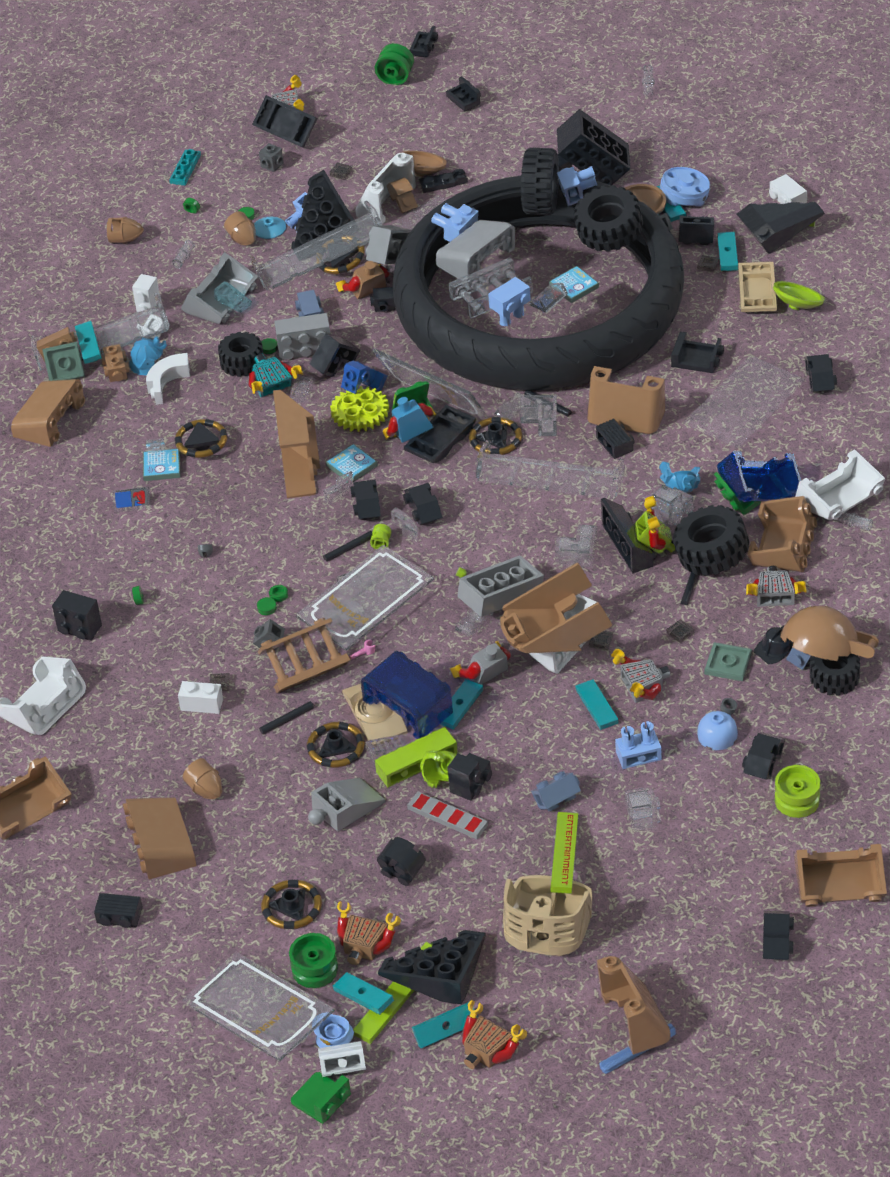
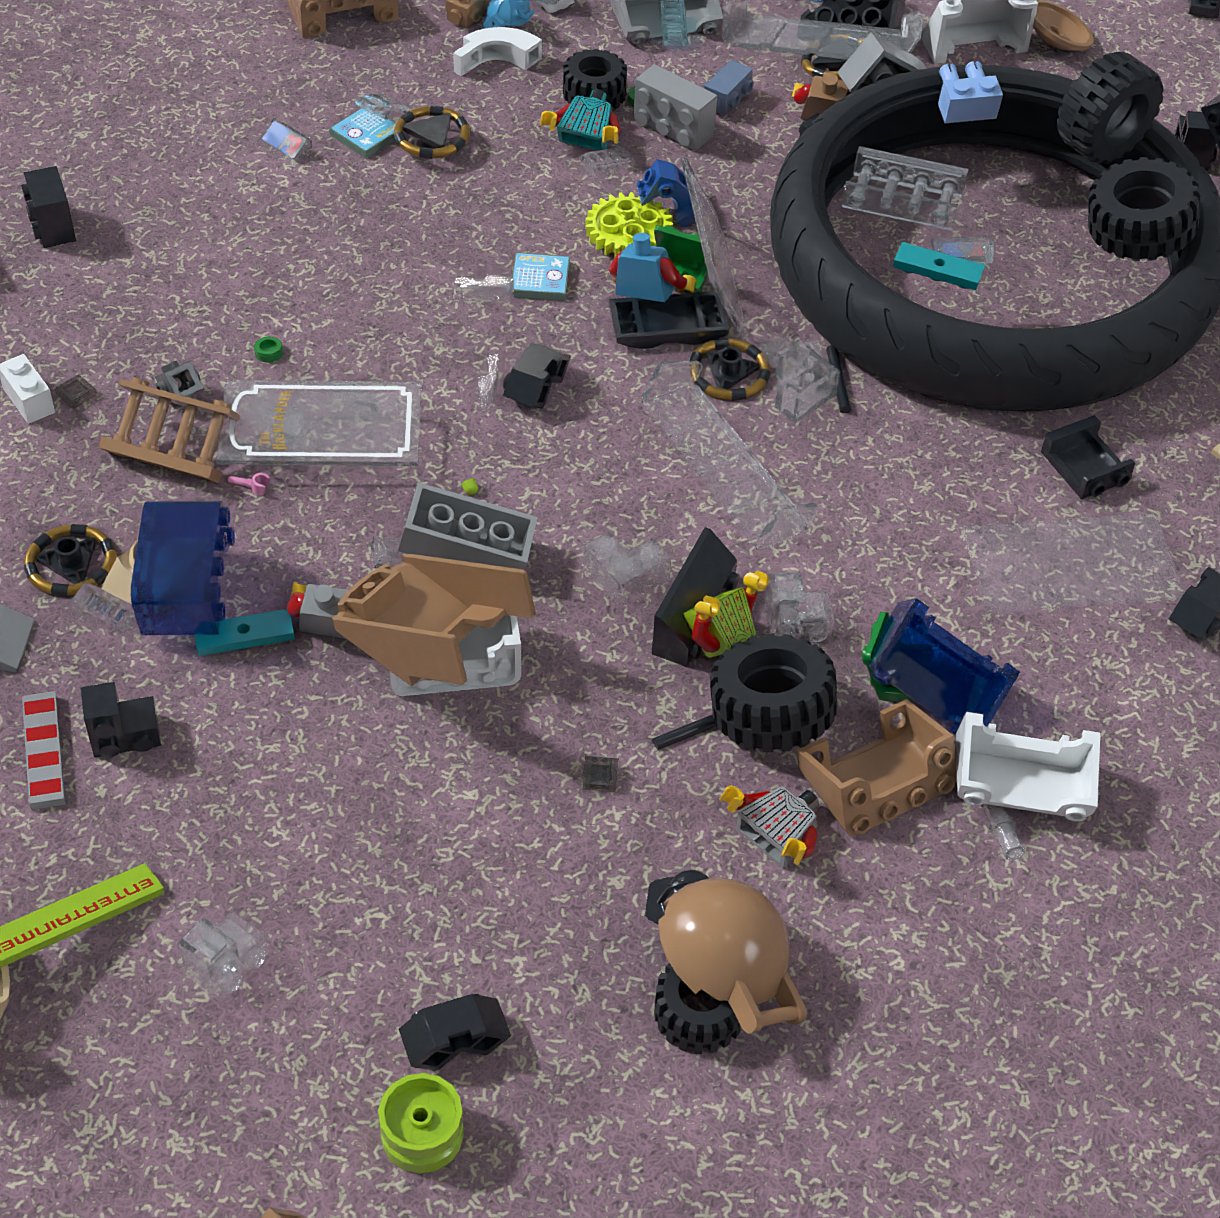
camera: 40 degrees right, 5 degrees up
(138, 595) = (142, 237): green tile -> none
(208, 548) = (270, 246): dark grey hinge -> none
(266, 606) = (237, 352): green tile -> none
(286, 717) = (73, 486): black bar -> none
(297, 446) = (490, 167): medium nougat windscreen -> none
(332, 353) = (680, 140): black brick -> none
(348, 546) = (407, 359): black bar -> none
(366, 499) = (486, 319): black brick -> none
(380, 536) = (446, 375): lime wheel -> none
(402, 192) = (993, 43): medium nougat brick -> none
(407, 759) = (110, 649): lime brick -> none
(435, 765) = (105, 669): lime hair -> none
(443, 181) = (1056, 62): black hinge -> none
(473, 245) = (950, 127): light grey windscreen -> none
(508, 299) = (896, 209): light blue brick -> none
(552, 311) = (939, 266): none -> teal tile
(561, 788) = (172, 834): sand blue brick -> none
(574, 182) = (1153, 139): light blue brick -> none
(576, 283) = (1021, 261): tile -> none
(597, 704) = (381, 774): teal tile -> none
(601, 641) = (500, 700): clear smoke tile -> none
(614, 438) = (850, 478): black brick -> none
(632, 406) = (903, 454): medium nougat windscreen -> none
(638, 748) = (335, 871): light blue brick -> none
(640, 677) = (466, 789): torso -> none
(682, 480) = (851, 590): dark azure helmet -> none
(717, 730) = (457, 943): light blue cylinder -> none
(728, 661) = (600, 866): sand green tile -> none
(731, 702) = (510, 917): dark grey hinge -> none

